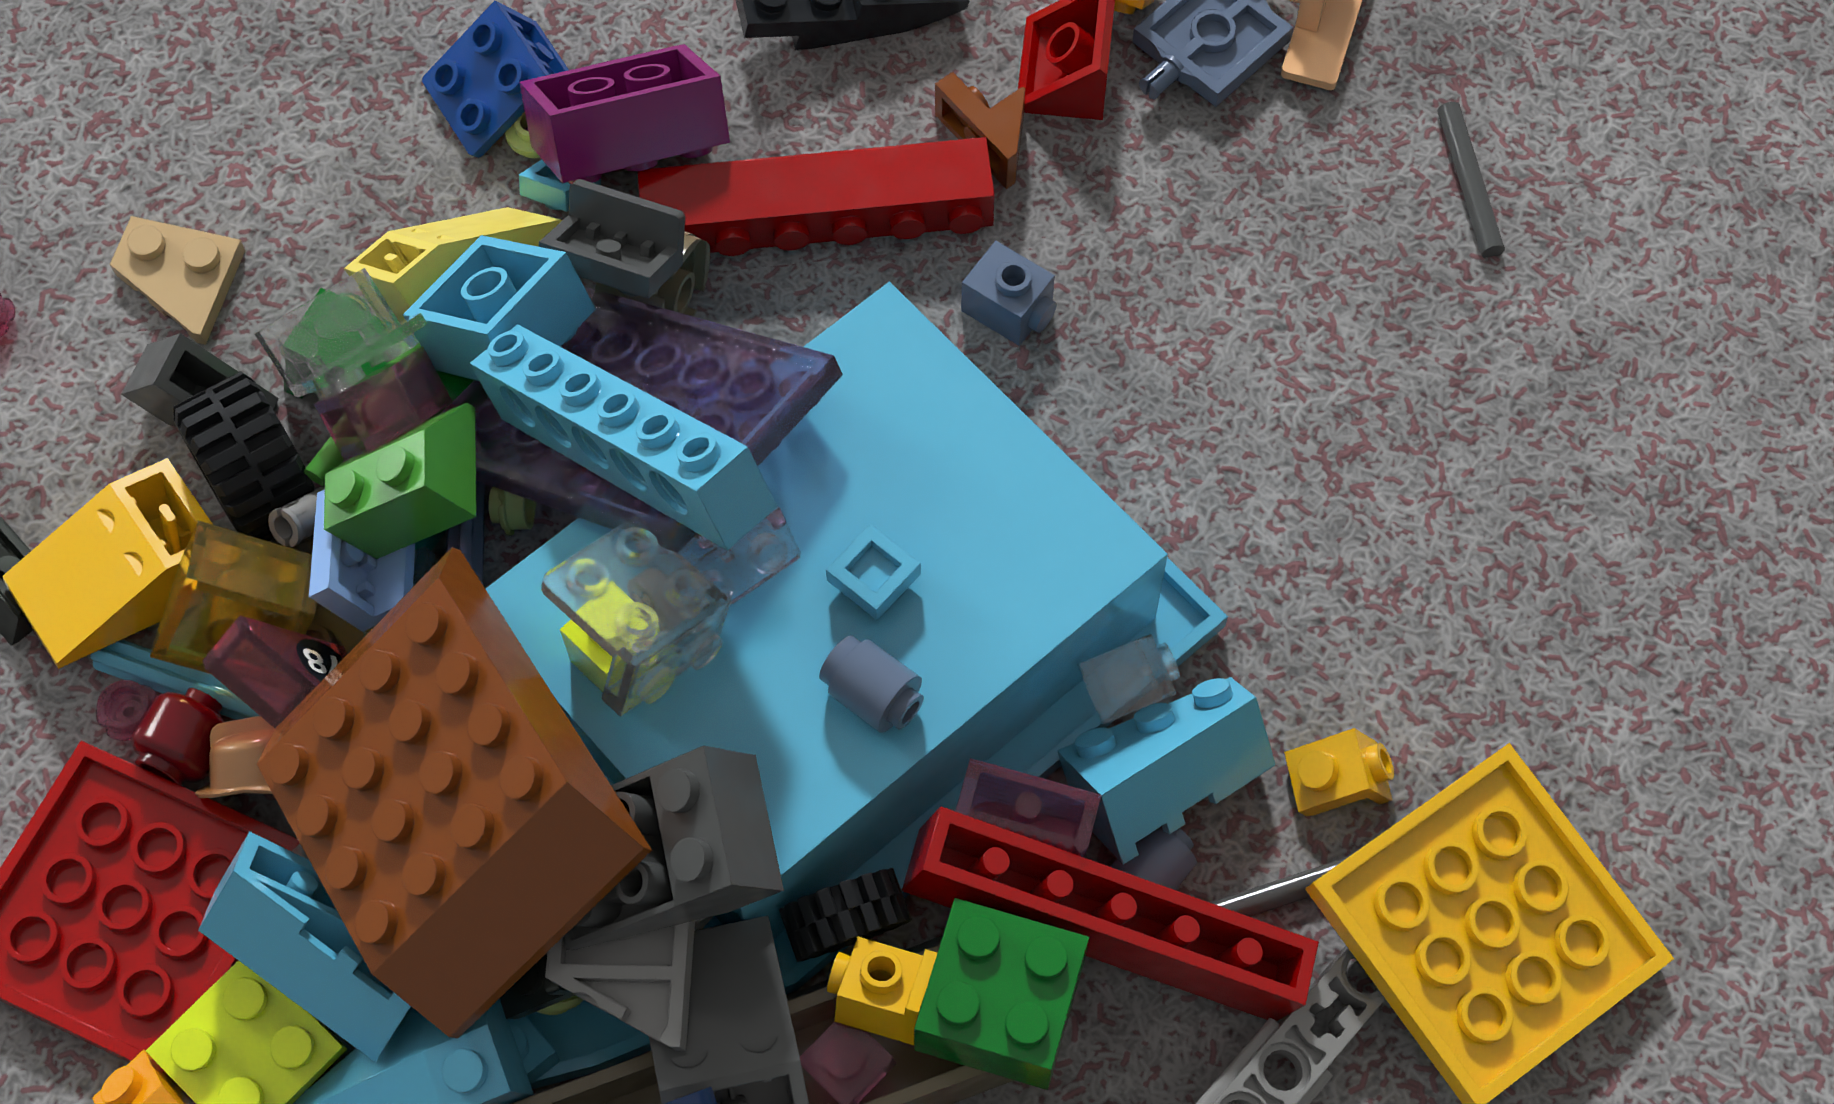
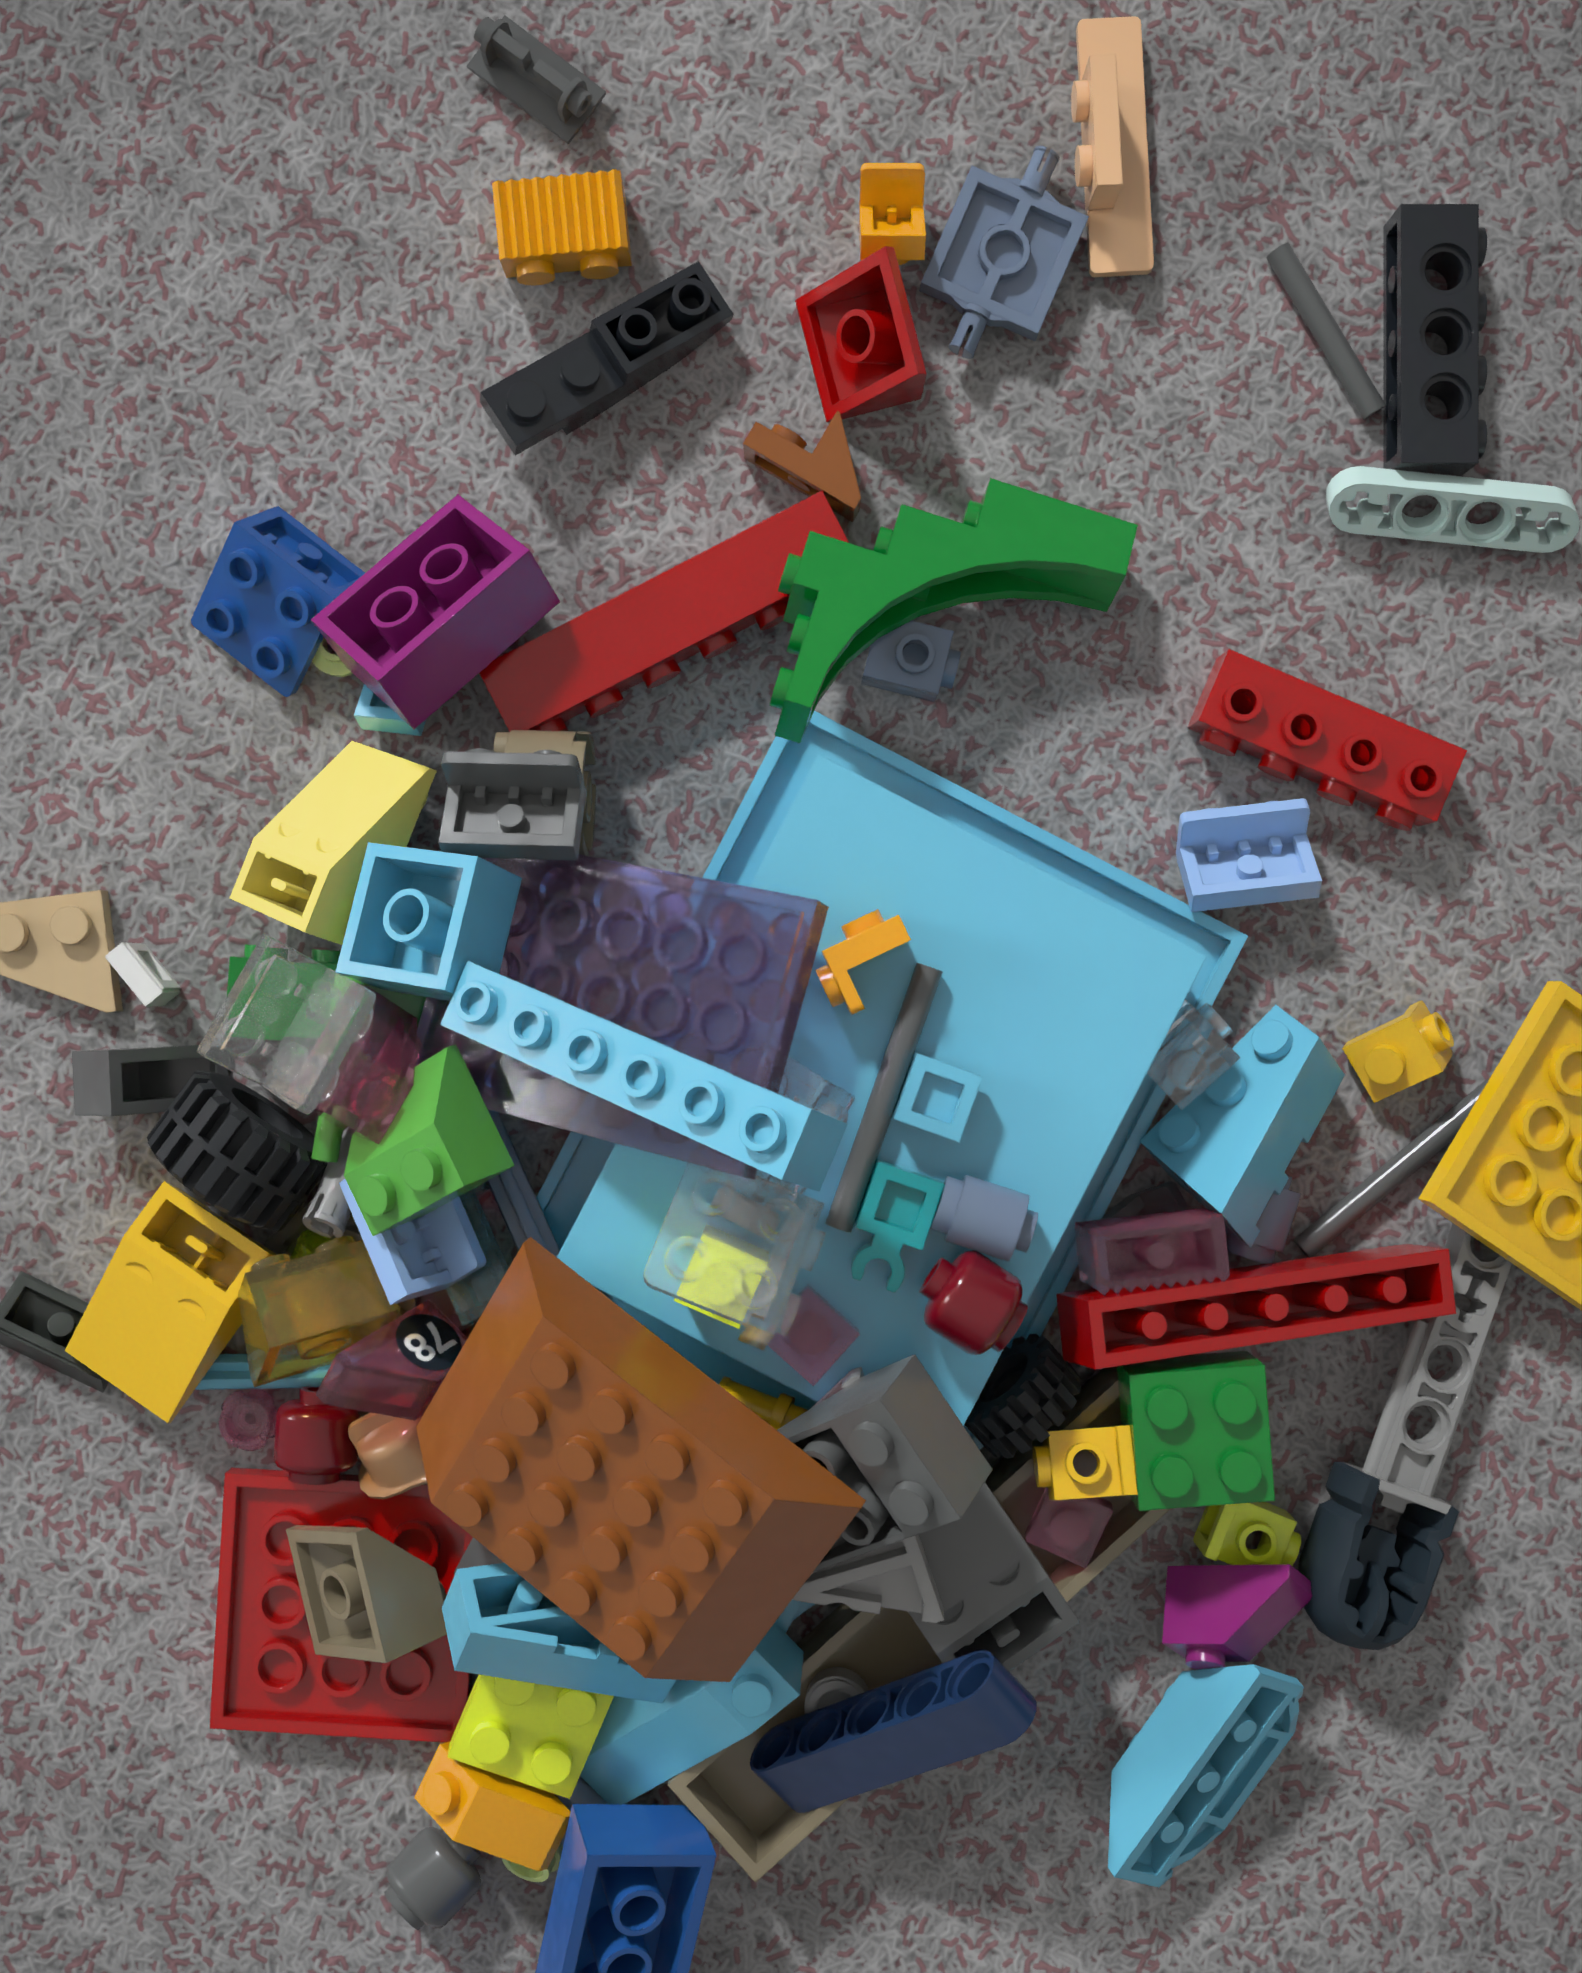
camera: 20 degrees left, 25 degrees up
(150, 873) = (365, 1593): none -> dark tan slope
(239, 310) = (143, 973): none -> white tile
(669, 726) = (815, 1338): none -> clear pink plate
(789, 658) = (896, 1212): none -> teal plate
(813, 574) = (883, 1097): none -> dark grey bar
(830, 750) = (973, 1303): none -> dark red head
(855, 426) = (864, 940): none -> light orange bracket
(1047, 212) = (1002, 549): none -> green arch
(1252, 546) = (1247, 855): none -> light blue bracket
(1358, 482) = (1325, 740): none -> red brick
(1539, 330) = (1455, 499): none -> light aqua beam
(1579, 135) = (1455, 246): none -> black brick

